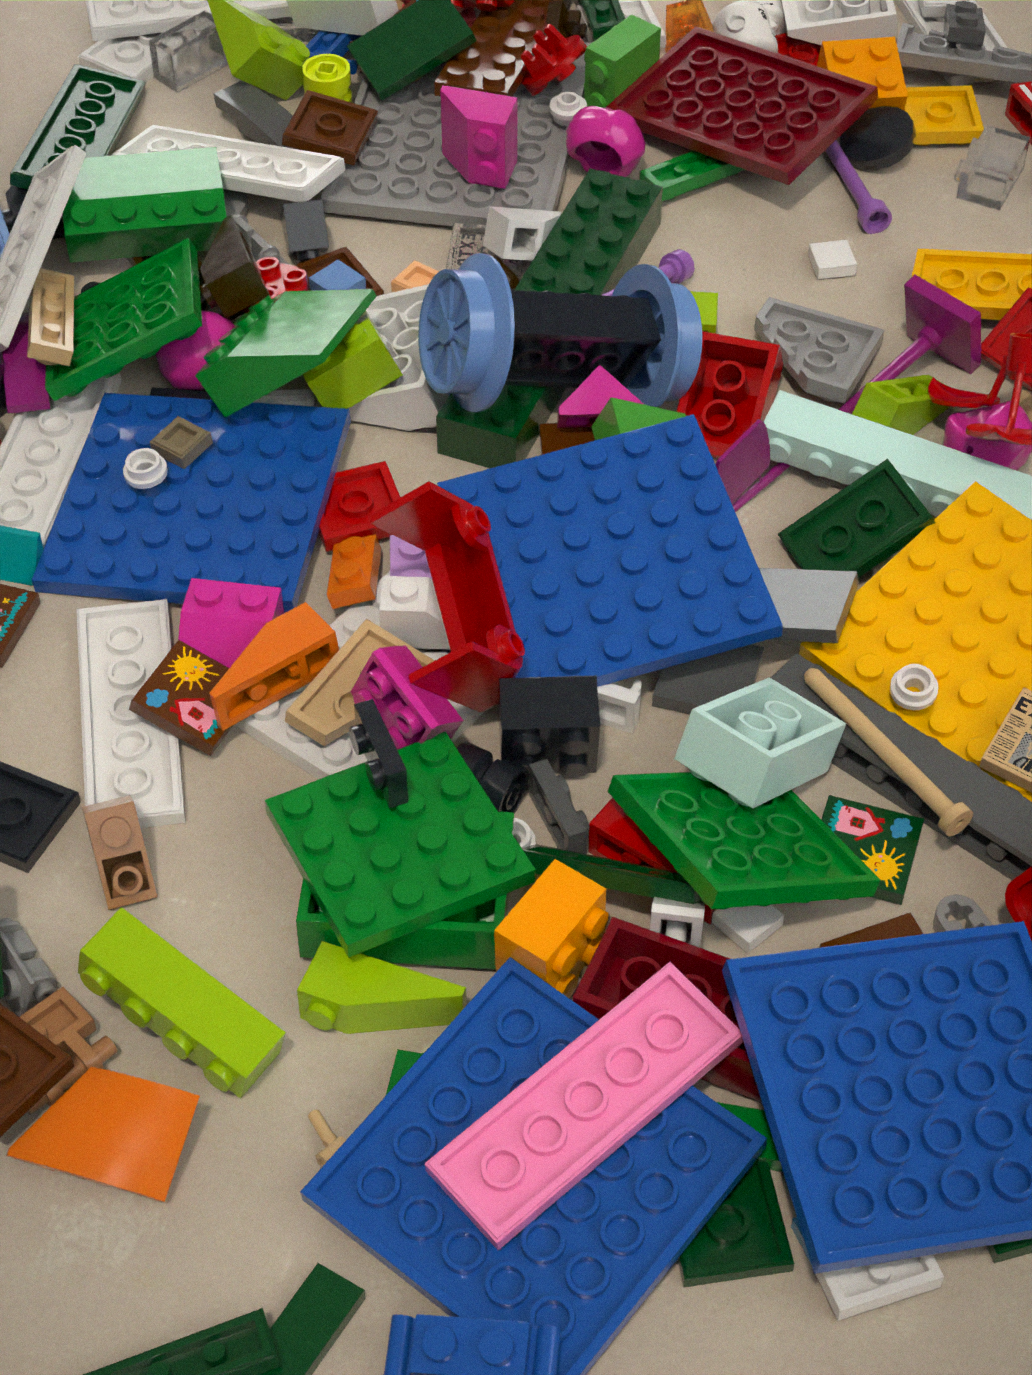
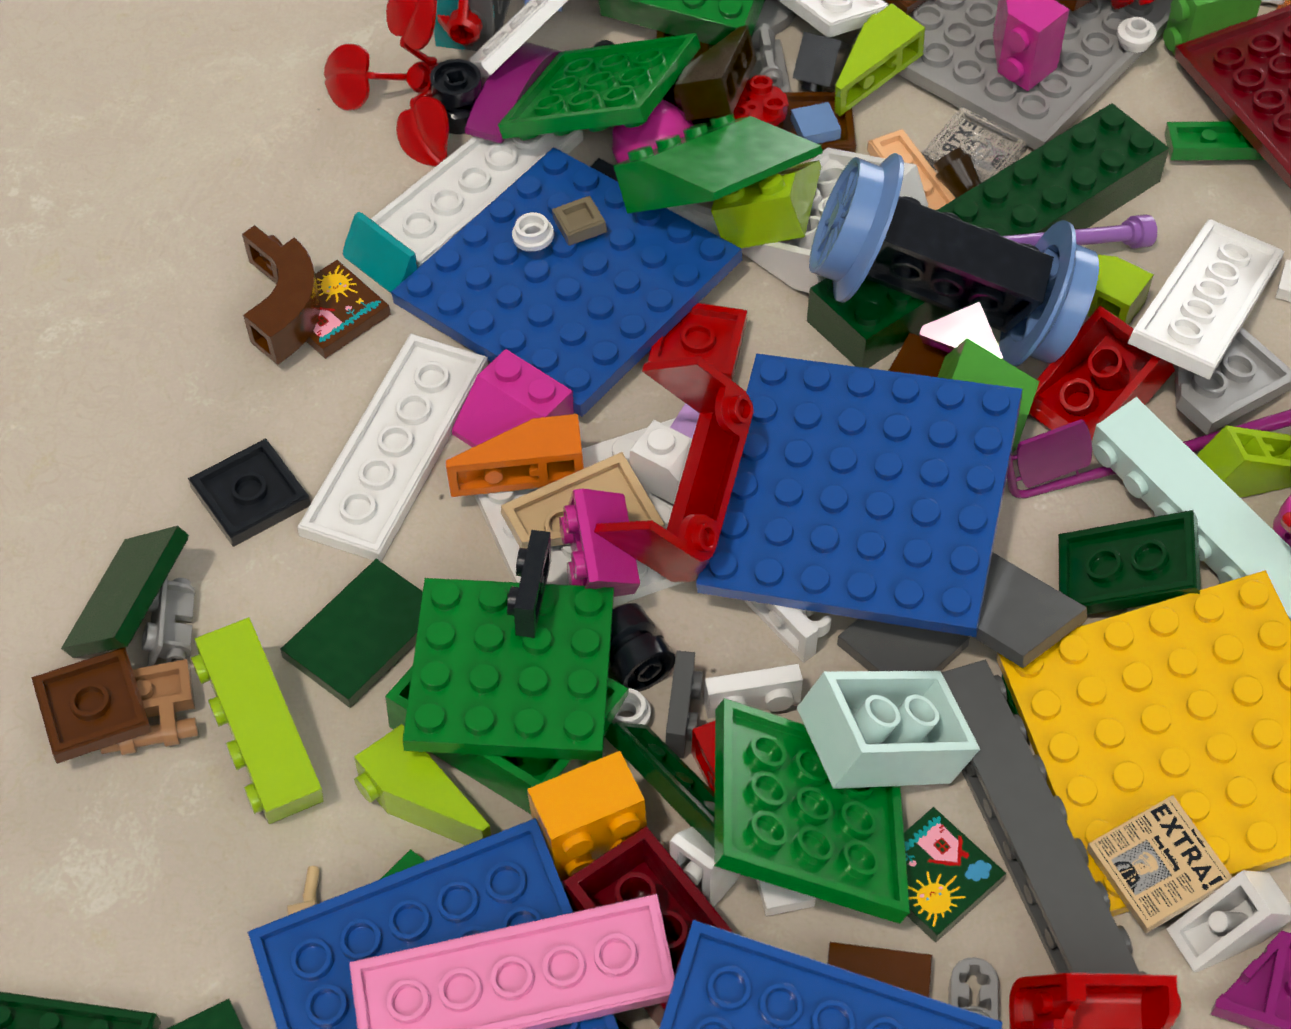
camera: 30 degrees right, 5 degrees up
(51, 318) = (543, 60): tan plate -> none
(112, 1133) = (144, 804): orange slope -> none
(119, 852) = (304, 562): medium nougat slope -> none
(179, 697) = (432, 441): reddish brown tile -> none
(216, 887) = (358, 633): none -> dark green tile
(354, 571) = (644, 405): orange plate -> none
(361, 194) = (882, 50): none -> lime slope
(518, 232) = (1003, 139): white slope -> none
(551, 722) = (715, 620): black brick -> none
(592, 782) = (761, 689): none -> white plate
(605, 140) = (1149, 81): dark pink piece -> none
(776, 294) = (1206, 299): none -> white tile
(914, 676) = (1069, 732): white plate -> none
(952, 816) = (1018, 887): tan bar -> none

